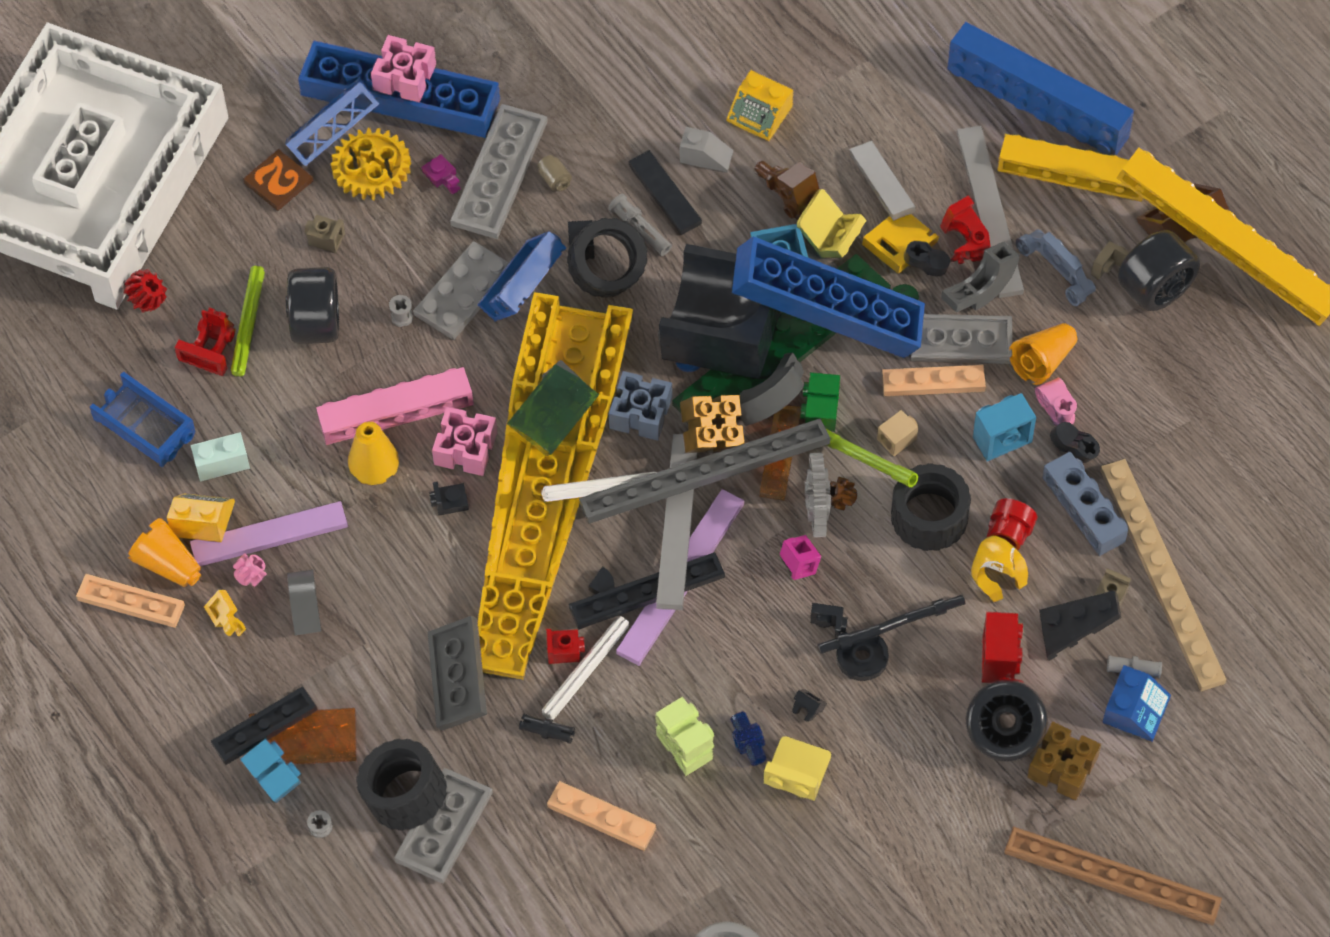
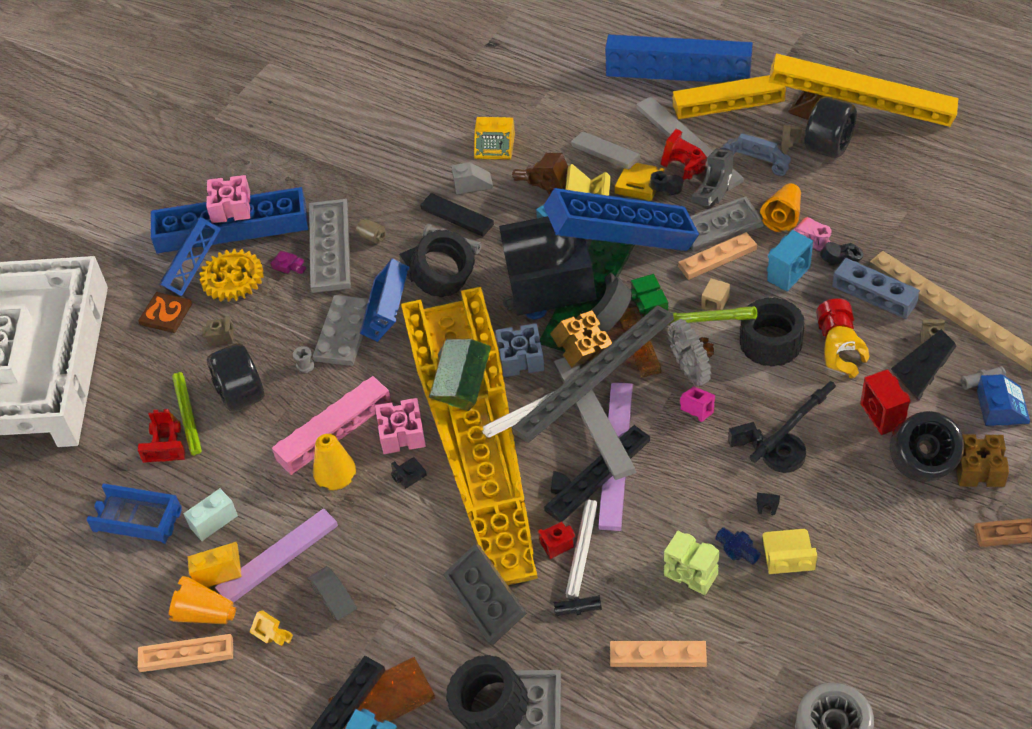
camera: 20 degrees left, 10 degrees down
(145, 290) = (95, 421): red gear -> none
(249, 570) = (275, 587): bright pink gear -> none

